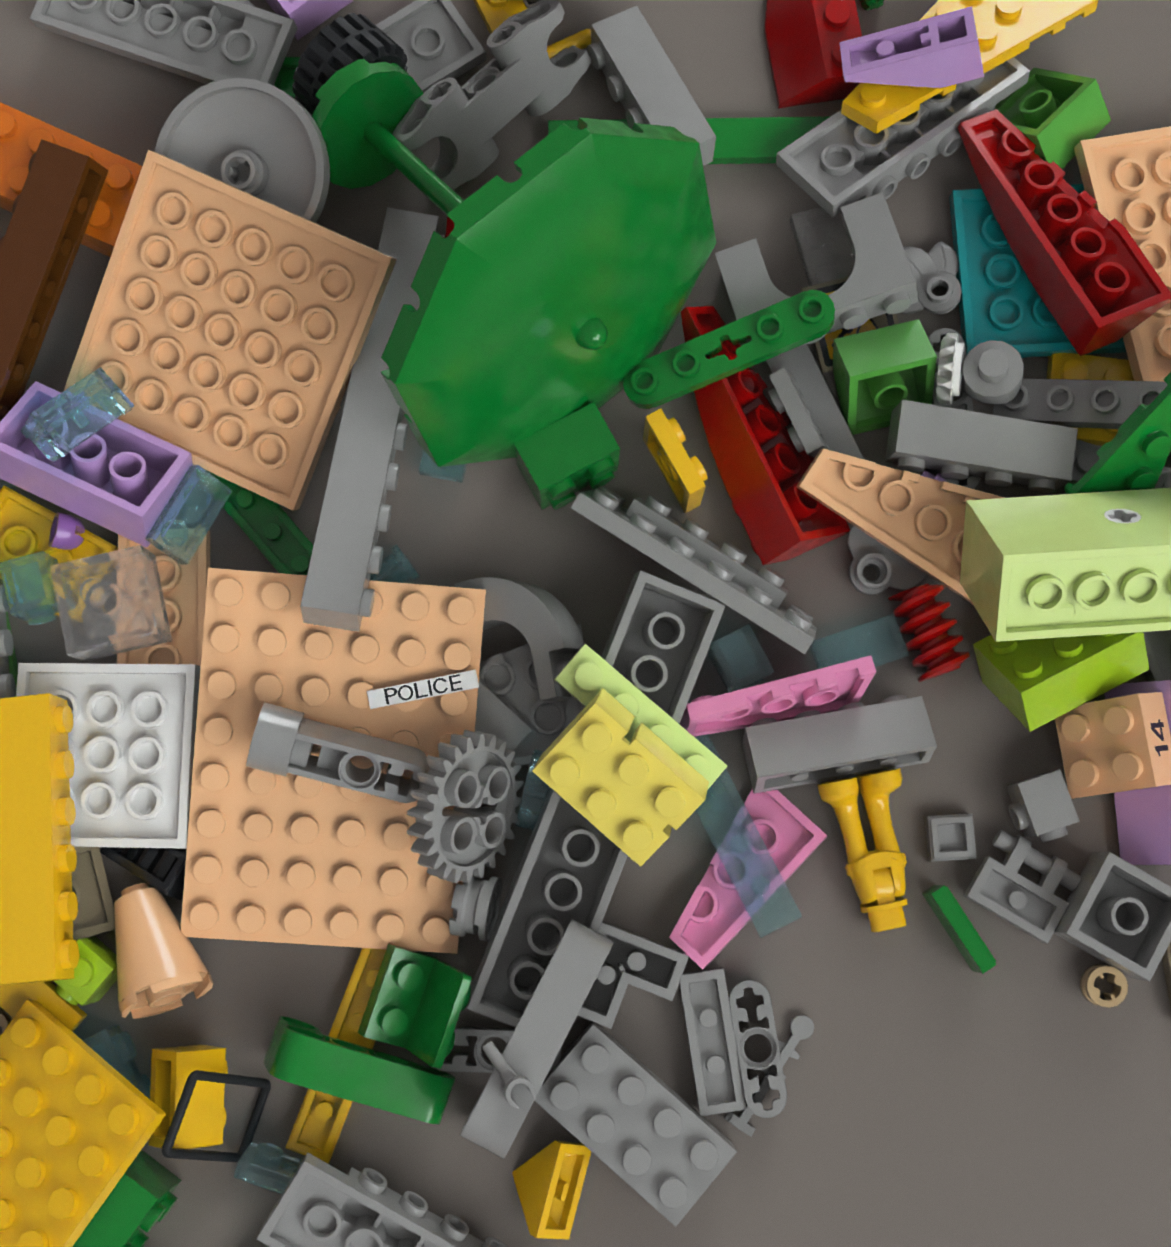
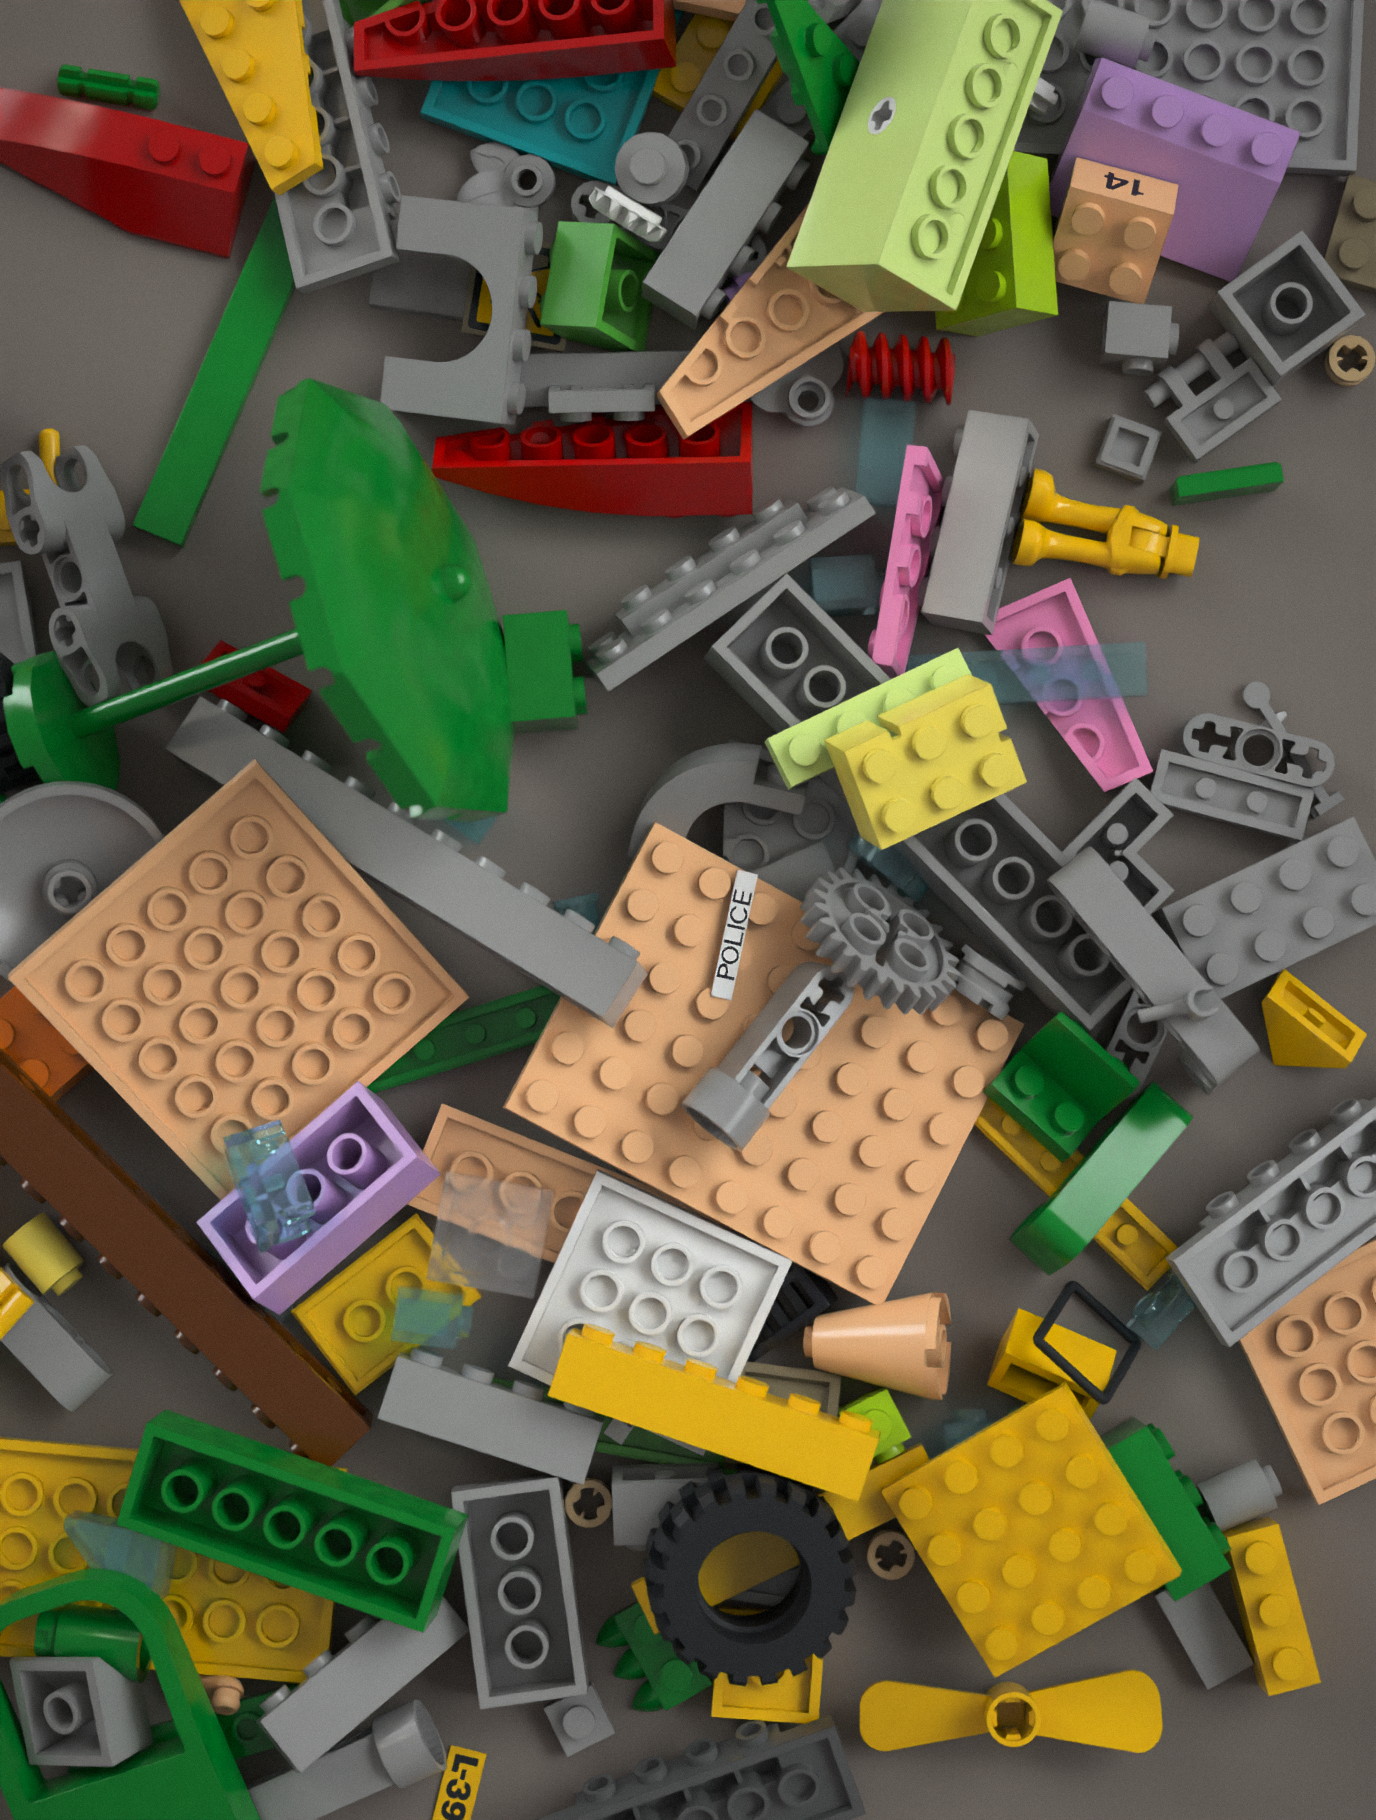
camera: 65 degrees left, 5 degrees up
(65, 532) = (379, 1260): medium lavender hinge -> none
(189, 514) = (424, 1112): clear light blue plate -> none
(645, 78) = (158, 396): light grey brick -> none
(681, 472) = (575, 559): yellow plate -> none
(771, 334) = (509, 390): green piece -> none
(917, 54) = (261, 87): lavender slope -> none

